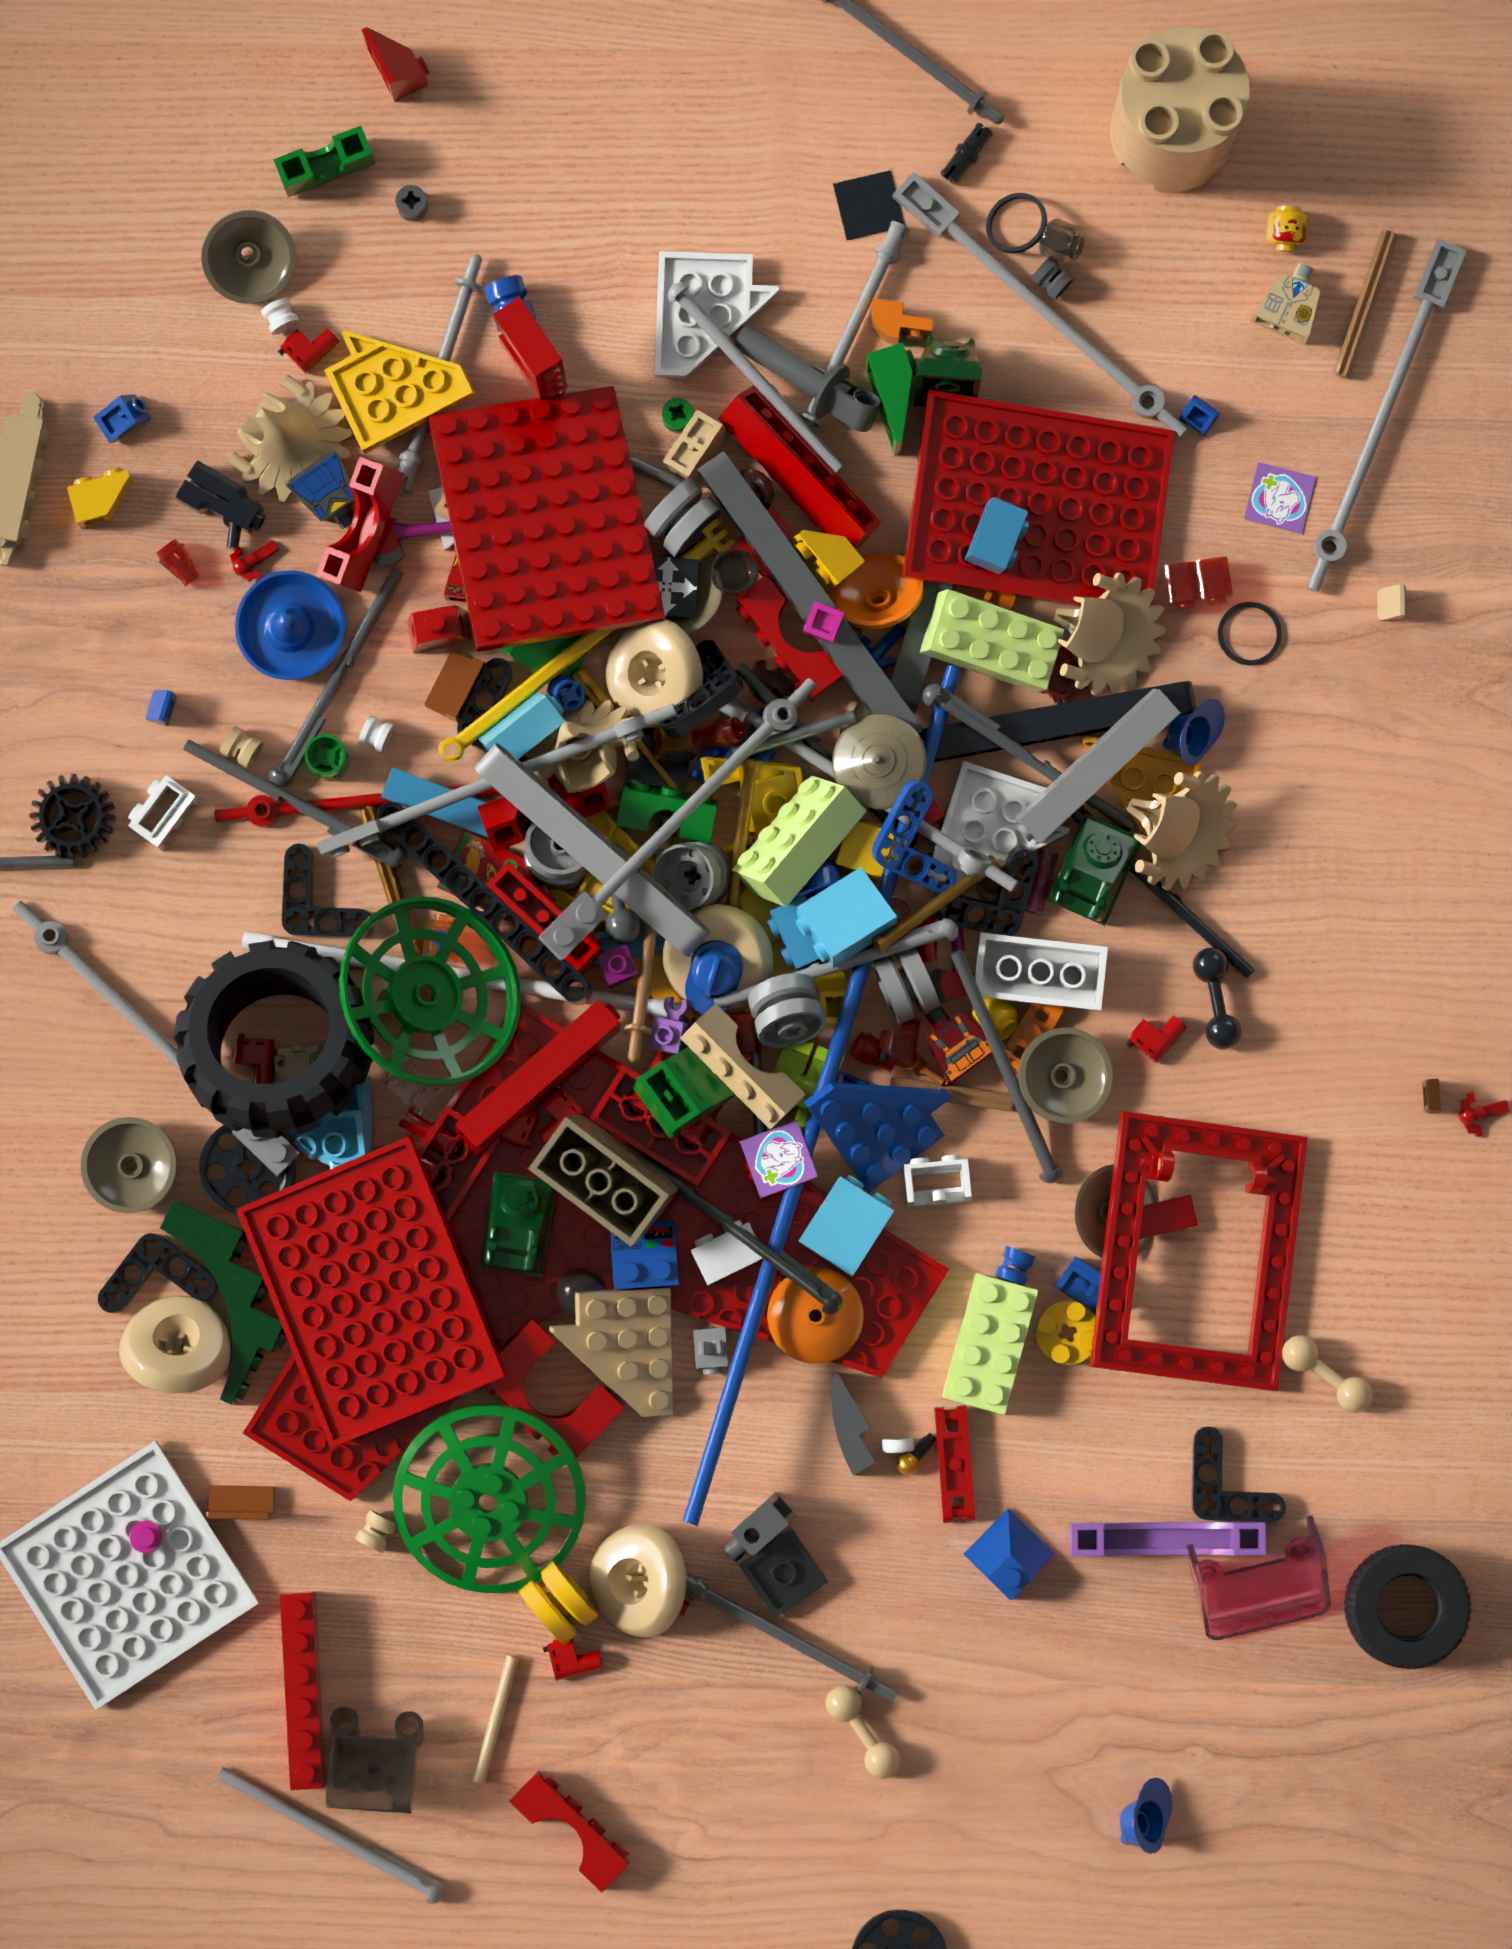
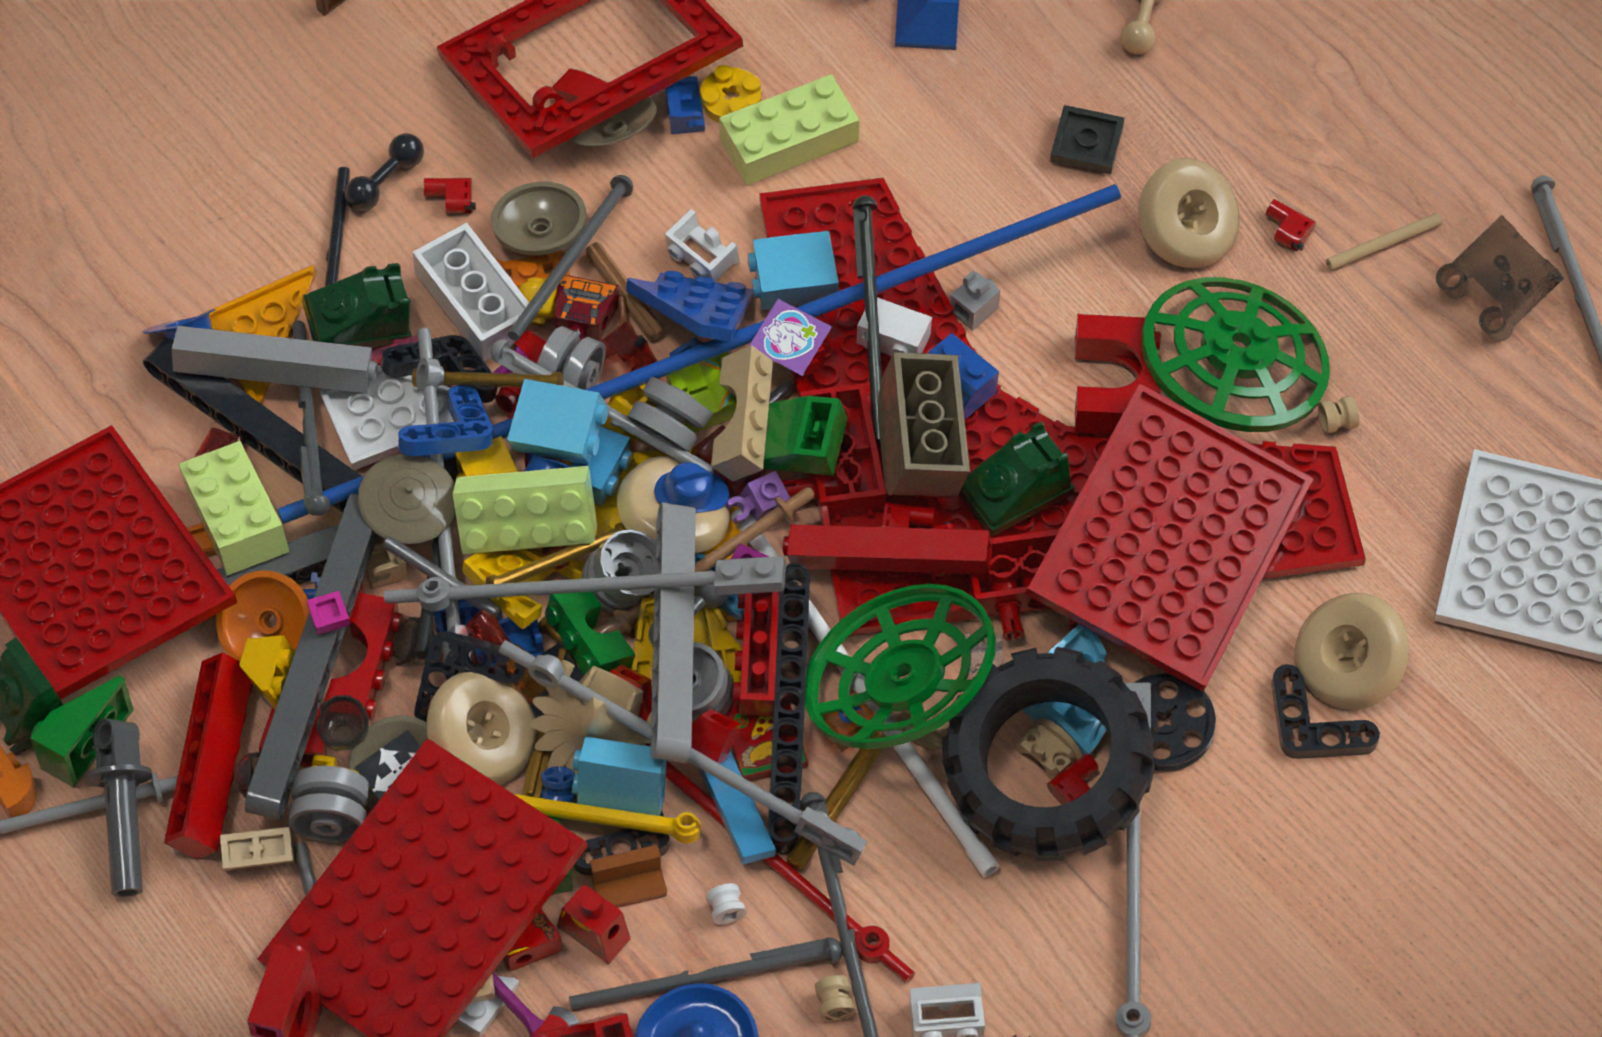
camera: 135 degrees left, 25 degrees down
(106, 1161) = (1256, 781): dark tan dish -> none
(146, 1537) = (1511, 556): dark pink plate -> none
(241, 1288) = (1246, 689): dark green arch -> none
(241, 1502) = (1417, 520): dark orange panel -> none
(302, 1690) = (1500, 372): red brick -> none
(304, 905) = (917, 848): black beam -> none
(326, 757) = (781, 920): green wheel -> none
(541, 1800) = (1407, 163): red arch -> none
(562, 1600) = (1261, 248): yellow wheel -> none
(574, 1281) = (1022, 407): clear smoke hair -> none
(626, 1344) = (1032, 346): tan wing -> none
(675, 420) = (243, 897): green wheel -> none
(679, 293) = (130, 958): light grey bar -> none
(700, 1590) = (1107, 37): dark grey bar -> none
(724, 291) = (125, 944): white wing -> none
(767, 1519) = (1069, 169): dark grey torso -> none
(811, 1340) = (903, 244): orange dish -> none
(848, 1426) = (940, 173): dark grey slope -> none
(897, 1445) = (921, 135): white tile -> none
(908, 1463) = (926, 123): piece -> none
(954, 1464) = (898, 93): red plate -> none
(997, 535) = (141, 552): dark azure brick -> none
(1017, 1259) = (715, 156): blue wheel -> none
(1111, 634) = (155, 437): tan piece -> none
(1184, 829) = (273, 277): tan piece -> none
(1198, 582) = (54, 413): clear red brick -> none
(1255, 605) = (66, 333): black piece -> none

